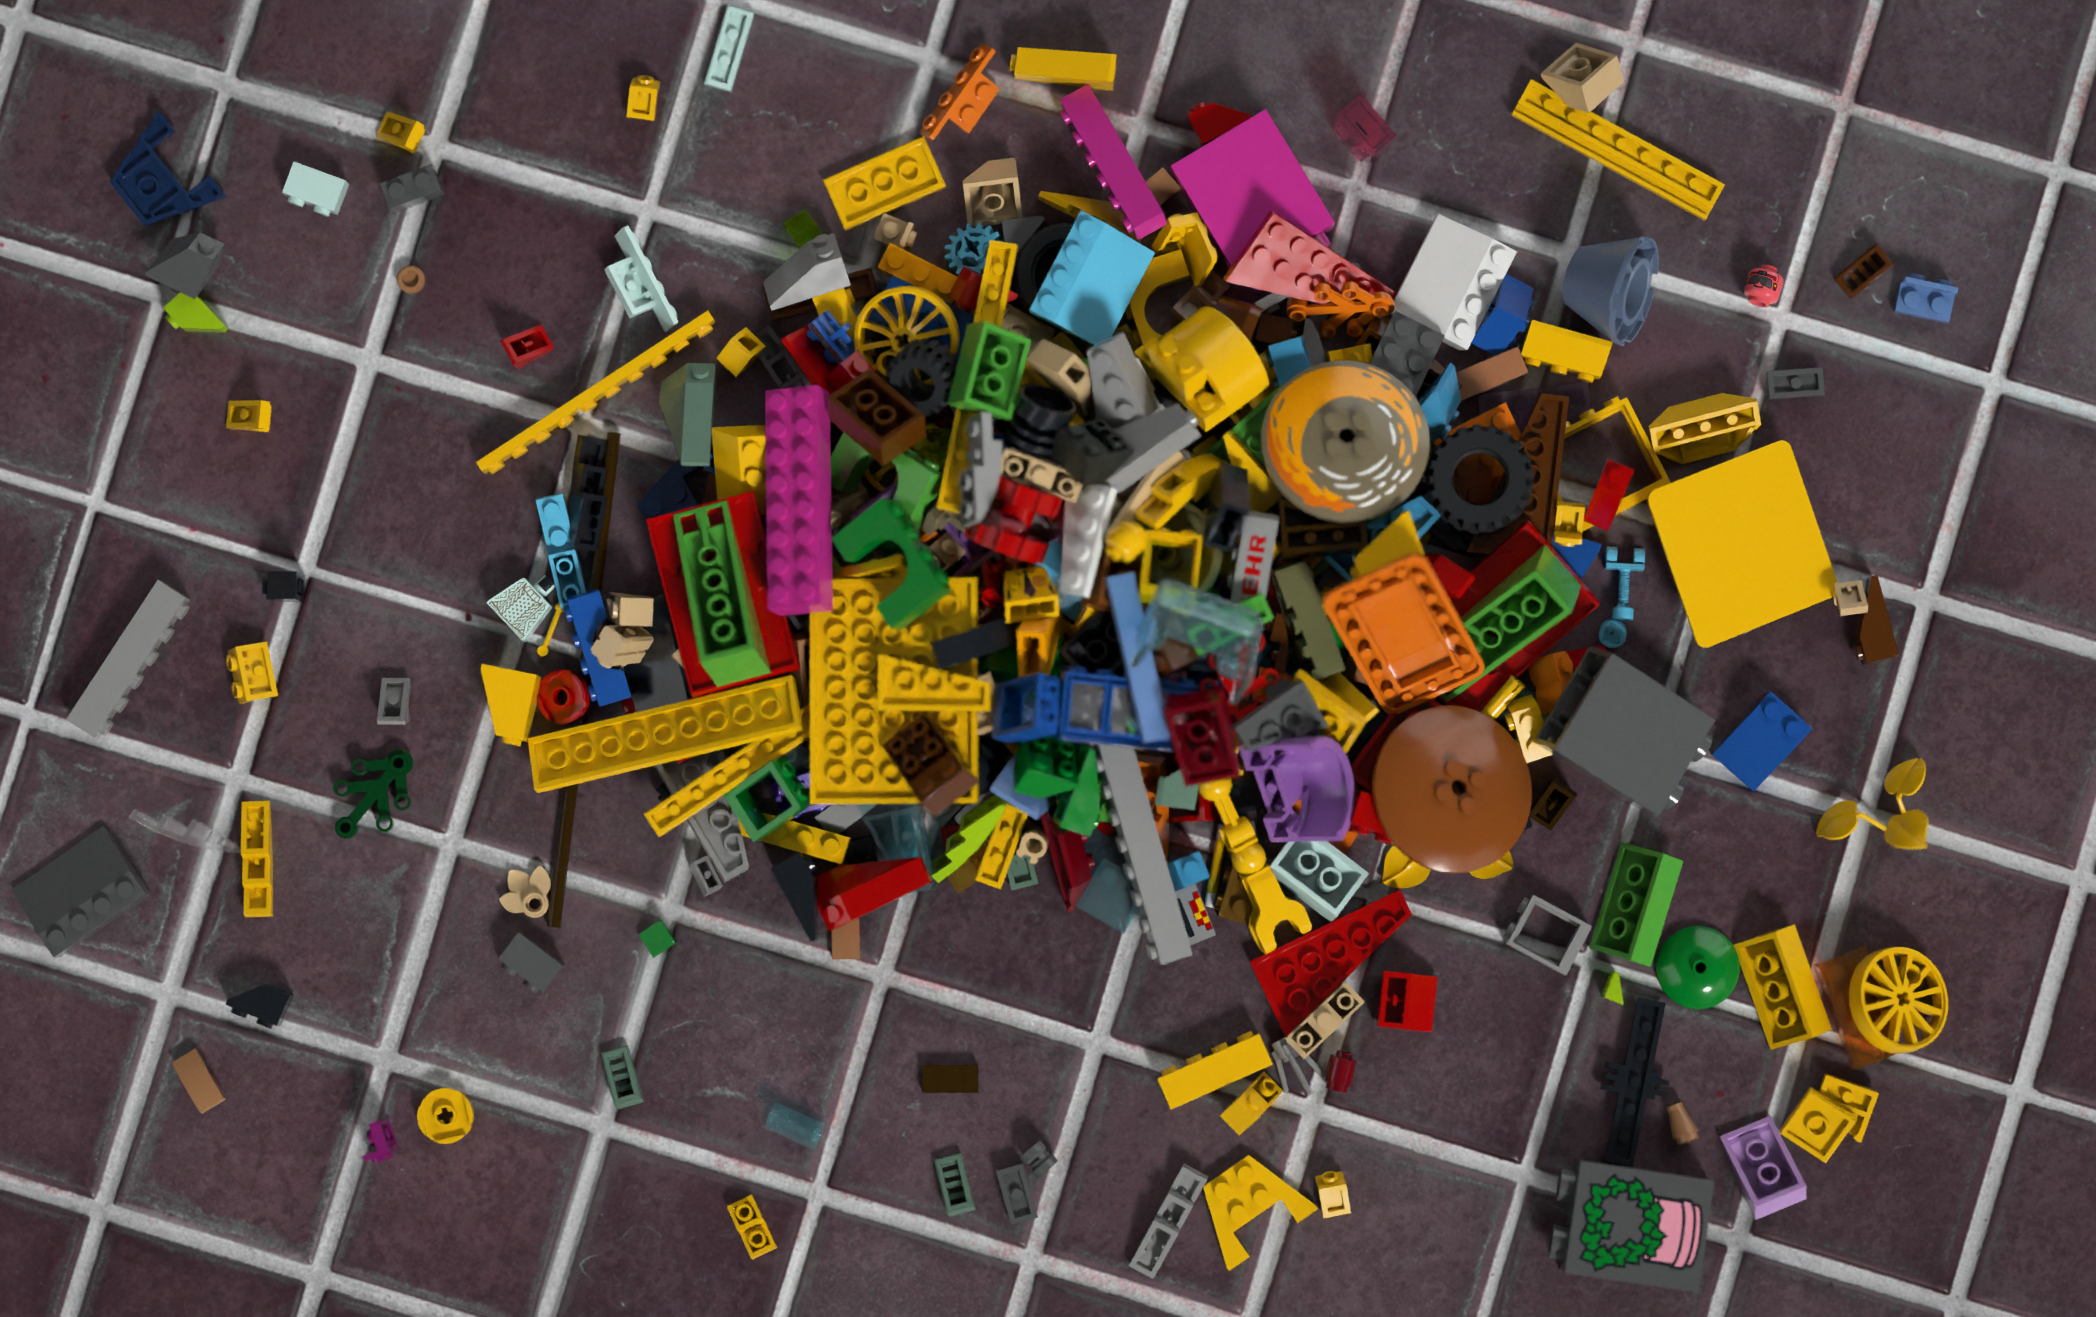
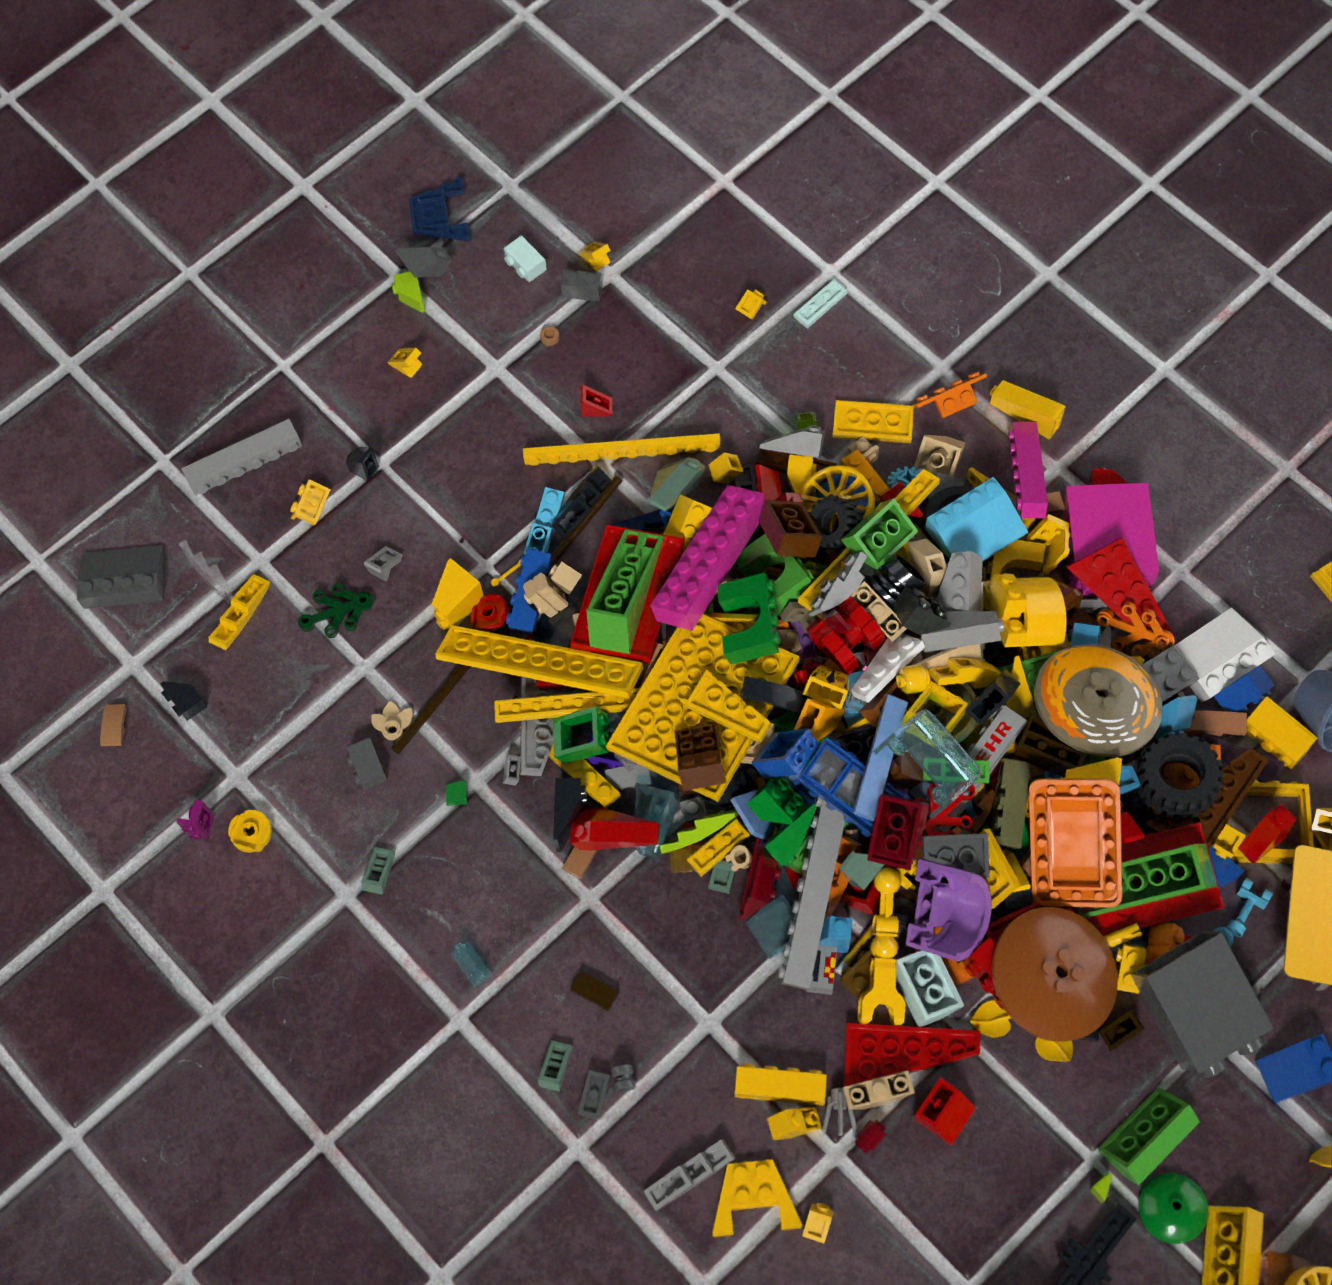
camera: 30 degrees right, 20 degrees down
(523, 605) = (499, 547): light aqua torso -> none
(636, 283) = (684, 400): light aqua bracket -> none
(752, 1227) = (401, 1016): yellow slope -> none
(832, 336) = (789, 479): blue hips -> none
(1363, 130) = (1206, 532): clear pink brick -> none
(1573, 946) = (1064, 1094): light grey window -> none

